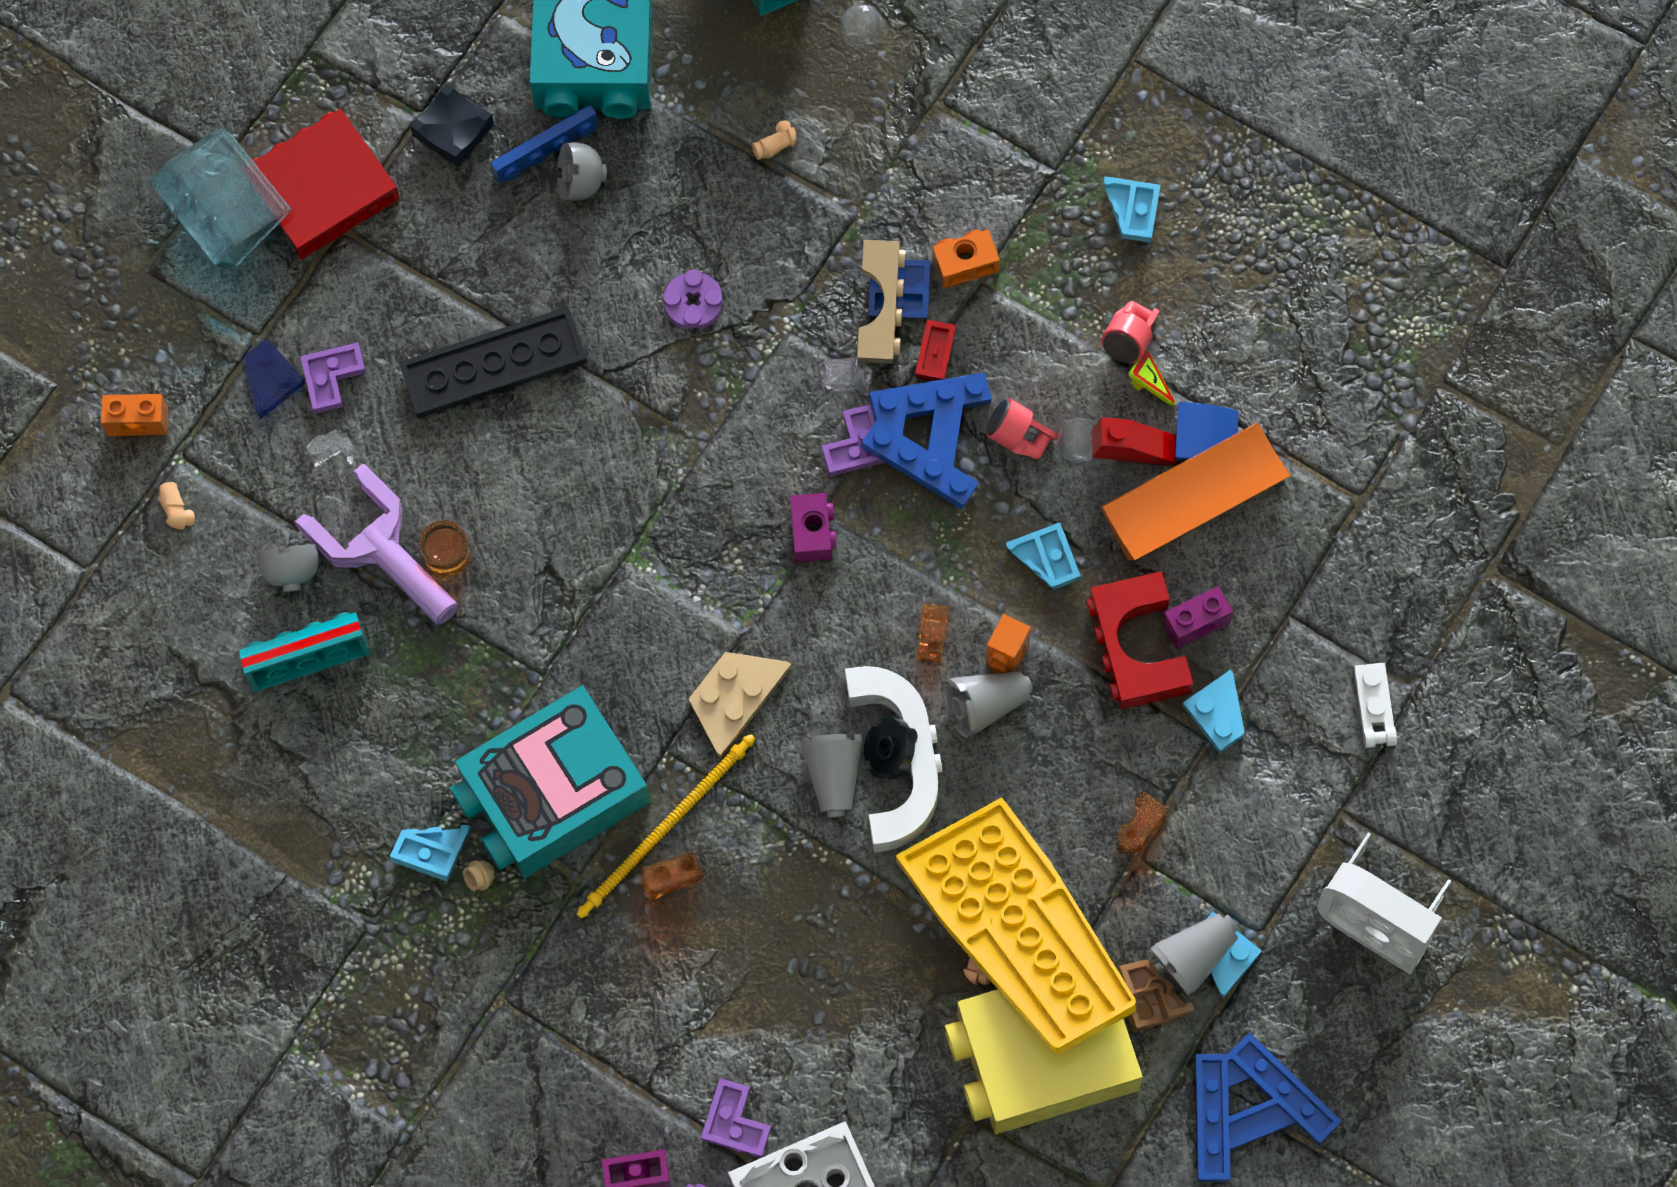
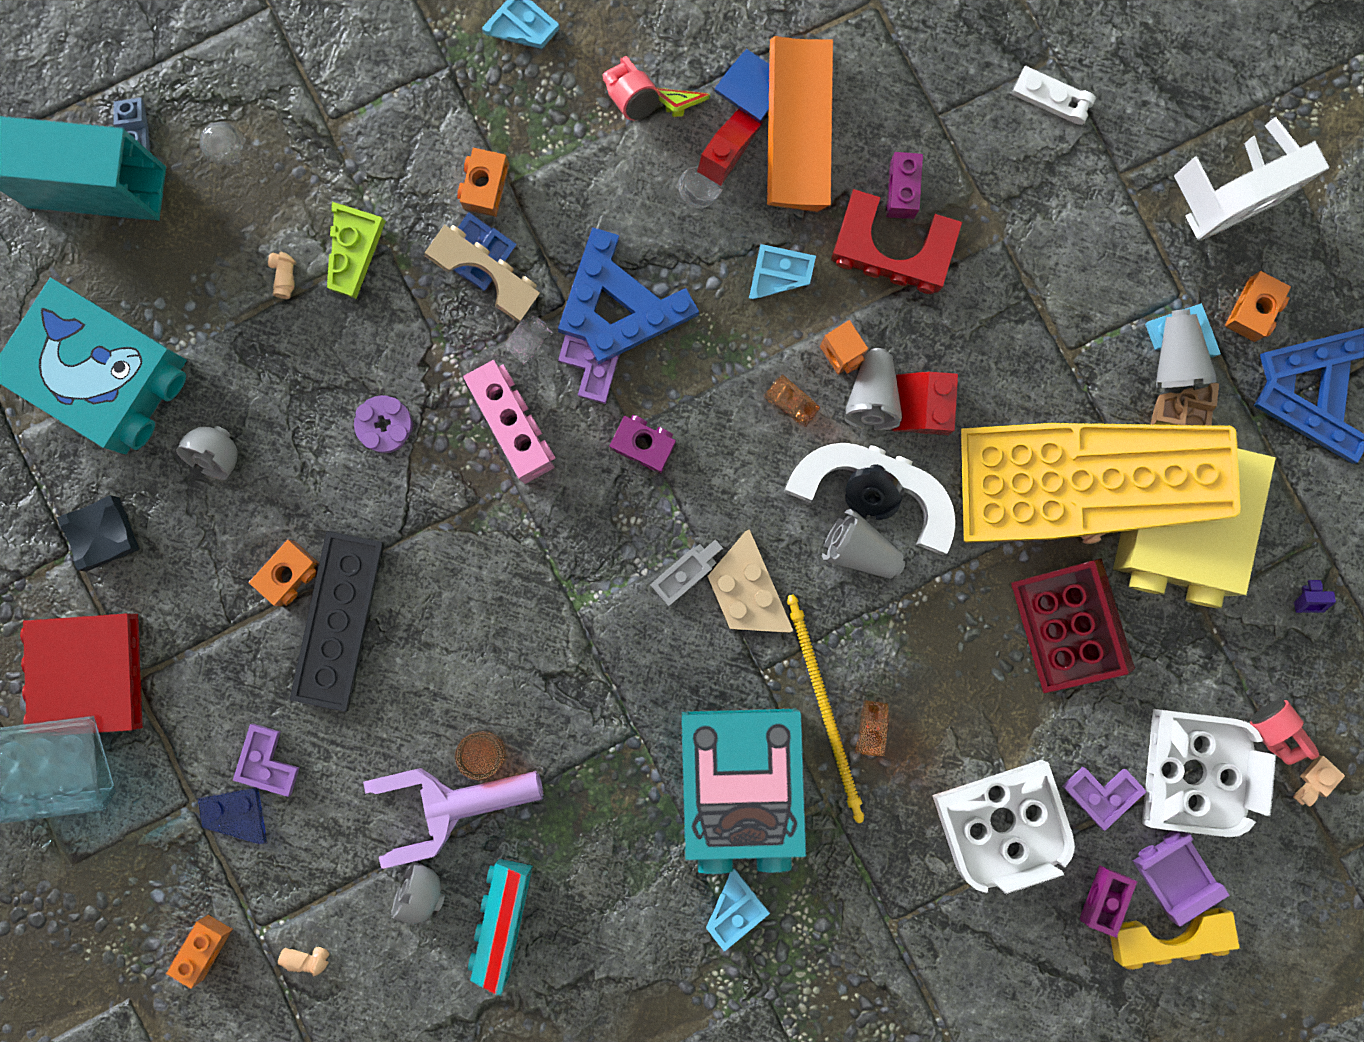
camera: 60 degrees left, 15 degrees up
(327, 446) = (328, 805): clear bracket -> none
(479, 875) = (781, 885): tan plate -> none
(497, 284) = (269, 579): none -> orange brick
(551, 140) = (165, 474): blue plate -> none
(657, 1088) = (1041, 840): none -> white piece
(718, 631) = (686, 572): none -> light grey hinge
(759, 400) = (485, 385): none -> bright pink brick
(839, 184) = (353, 246): none -> lime wing
(879, 1003) = (1073, 626): none -> dark red slope
(935, 351) = (550, 255): red plate -> none
(1006, 753) = (927, 402): none -> red slope
(1009, 425) = (655, 233): coral piece -> none
(1136, 833) = (1047, 332): clear orange leg -> none
(1218, 712) = (987, 218): medium azure wing -> none
(1306, 993) = (1246, 318): none -> orange brick

